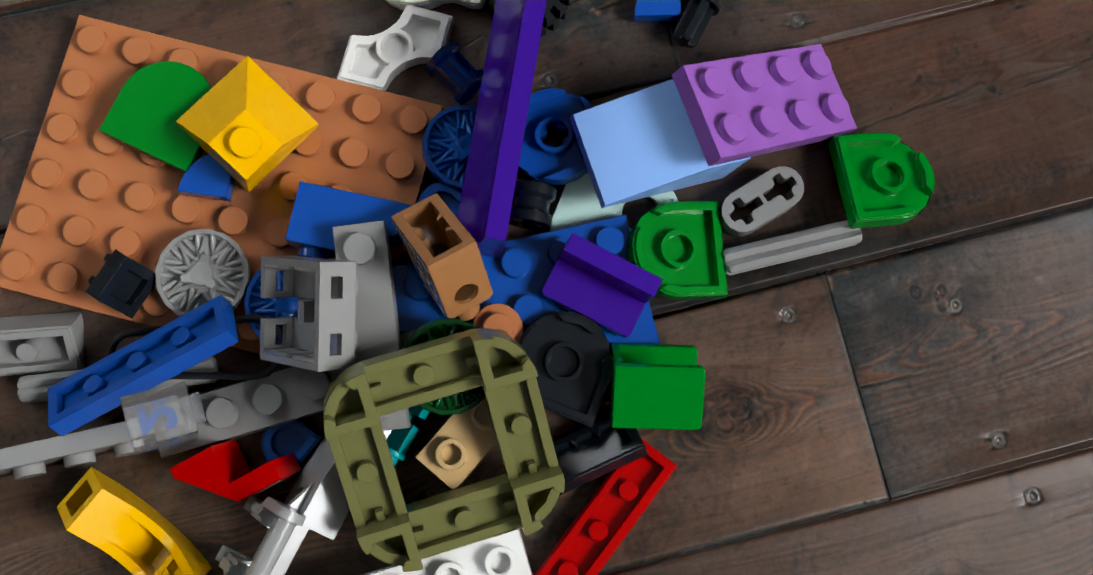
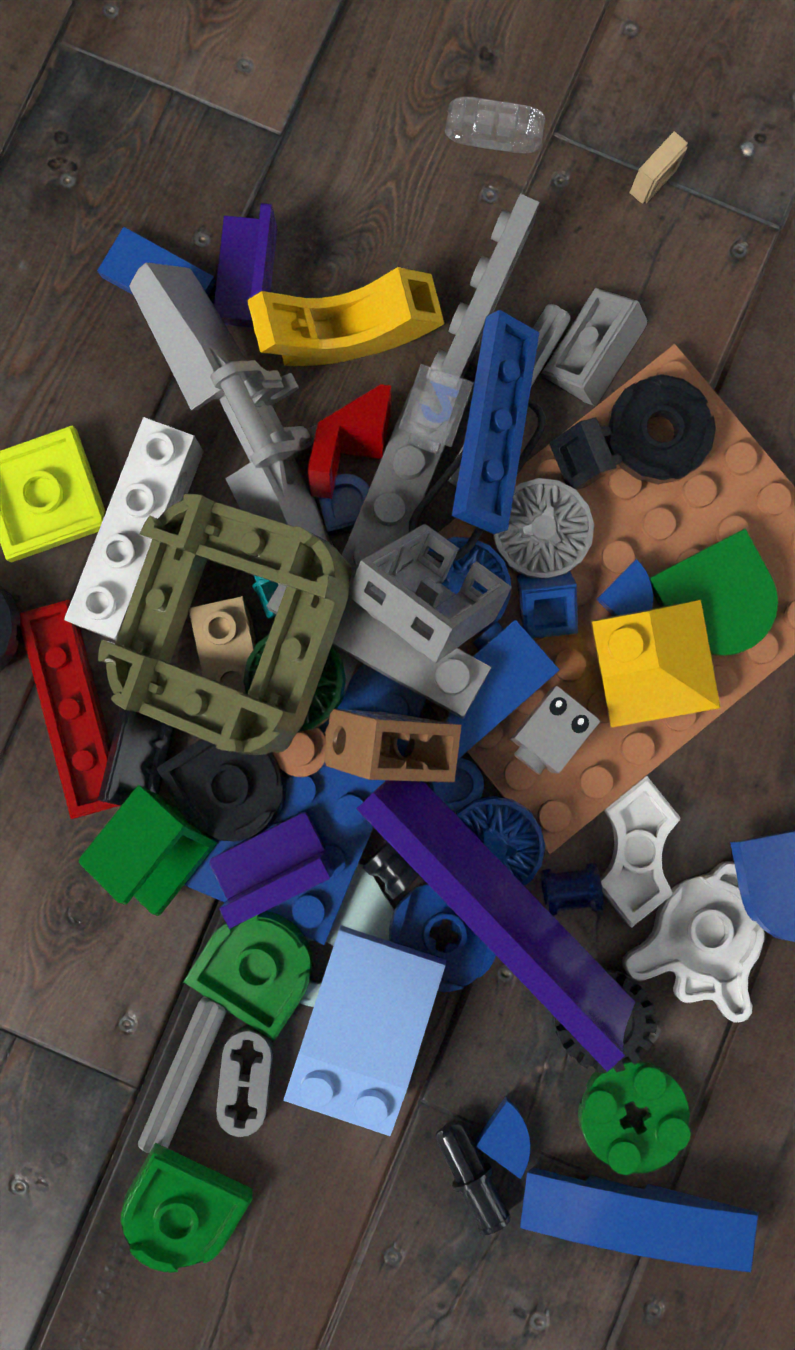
camera: 130 degrees right, 5 degrees up
(35, 237) = (678, 403): none -> black tile
(258, 230) = (548, 605): none -> blue slope
(350, 158) = (553, 732): none -> light grey brick
(763, 102) = (325, 1155): medium lavender plate -> none

